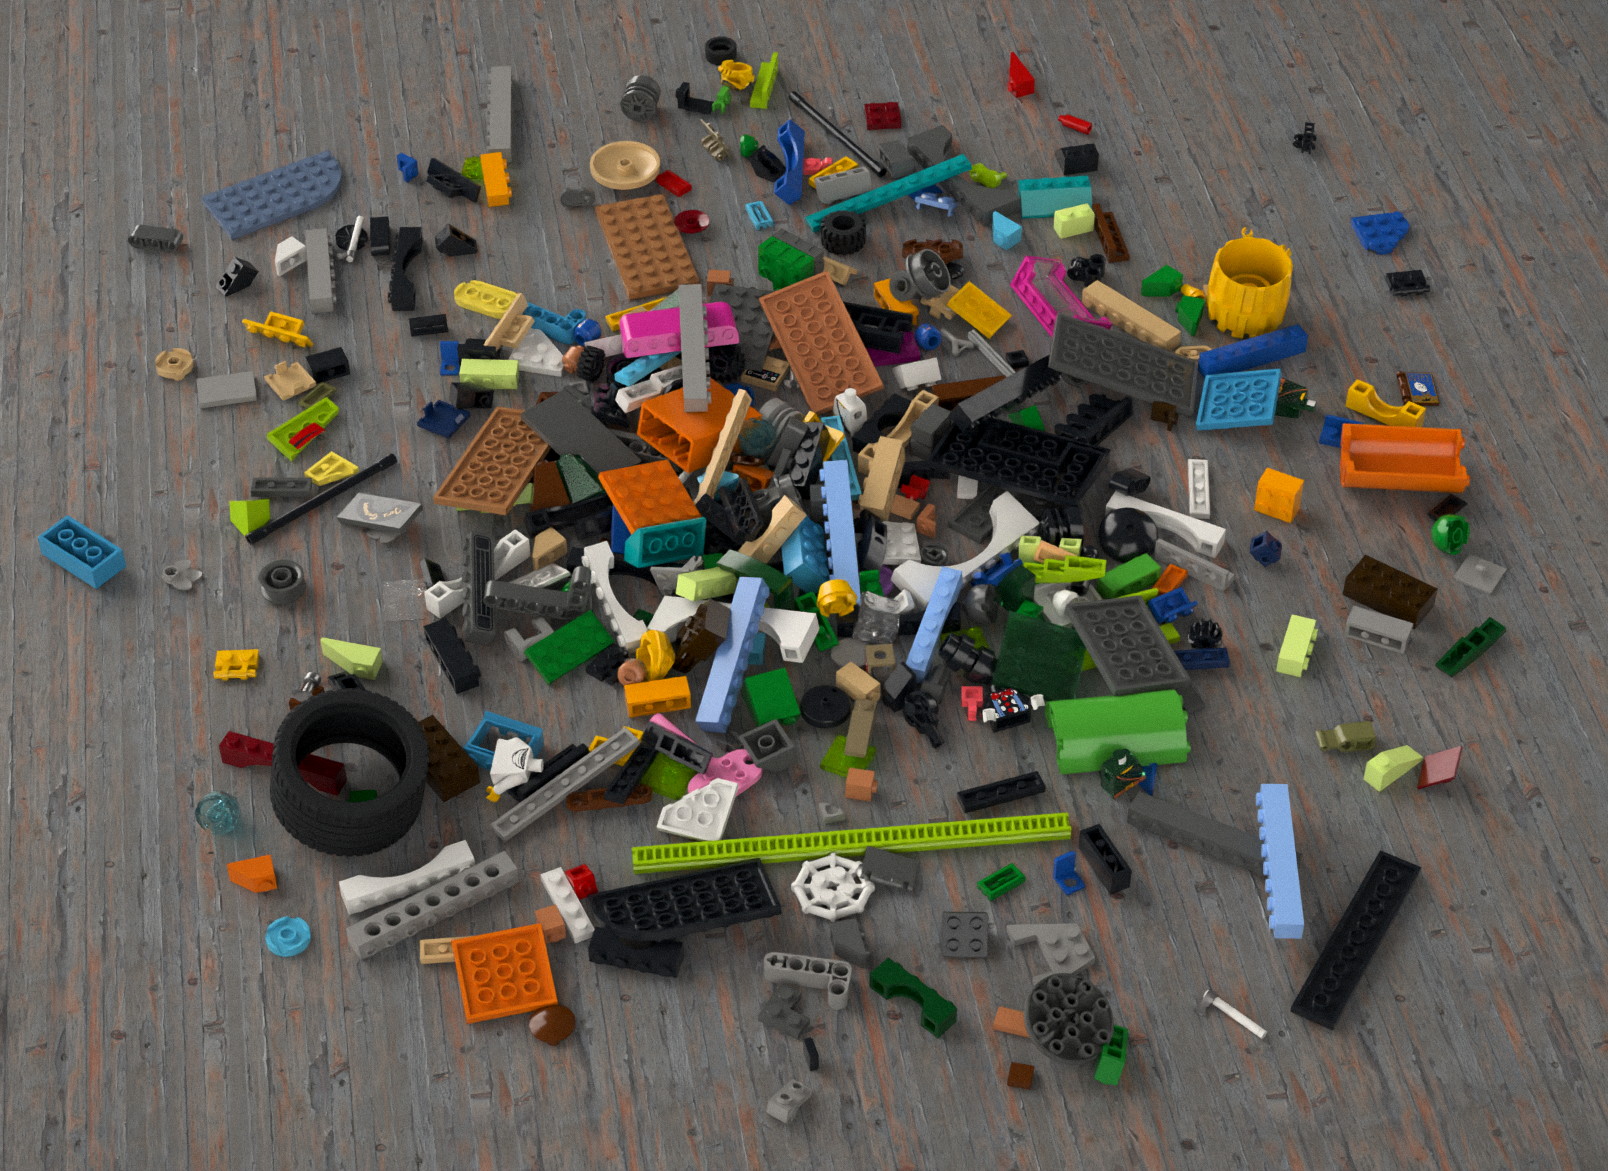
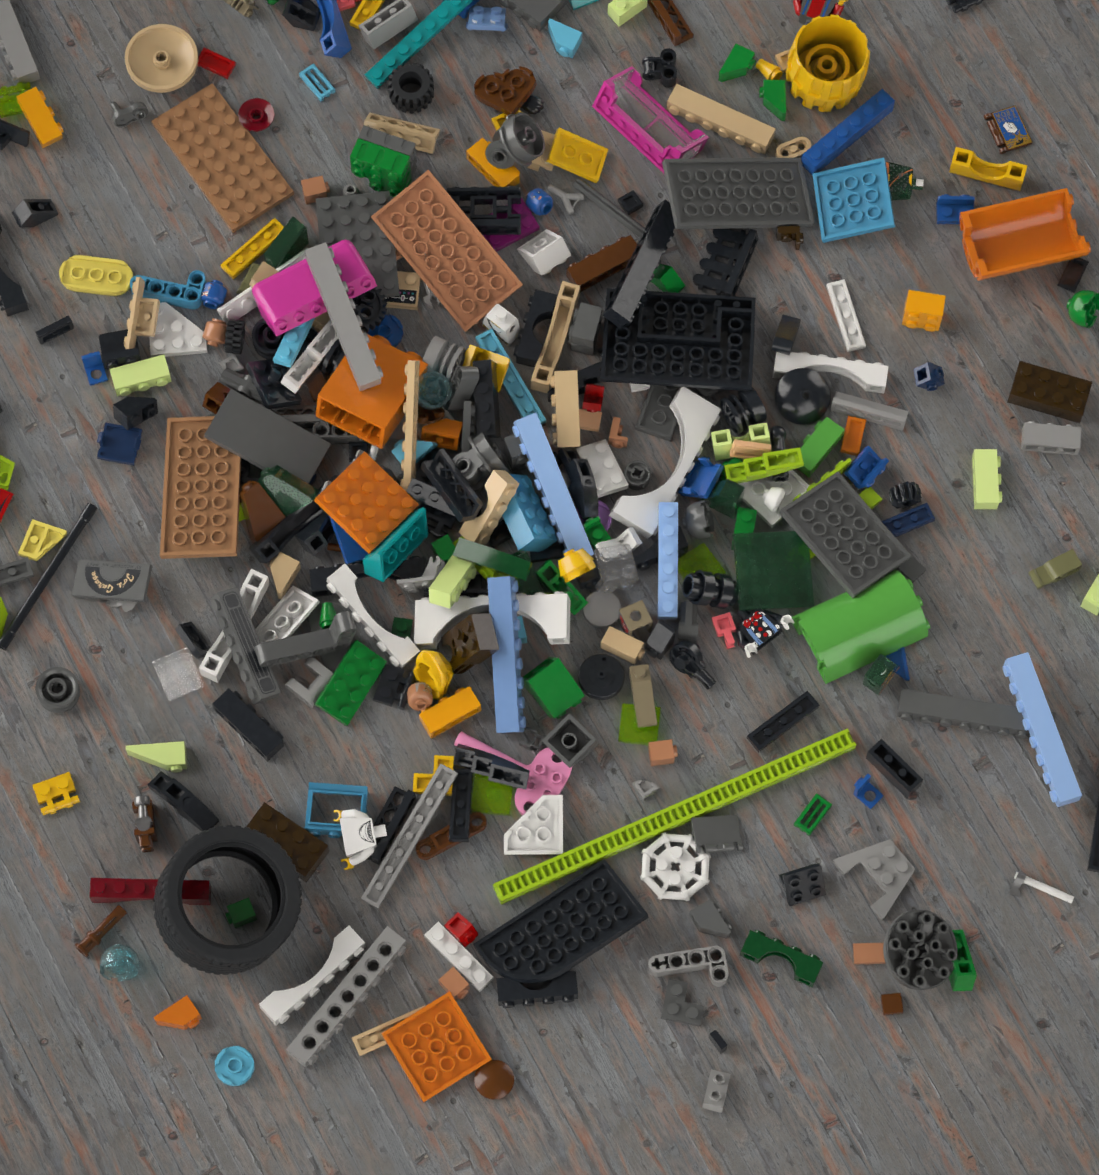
camera: 20 degrees left, 25 degrees up
(206, 786) = (92, 938): none -> reddish brown pin

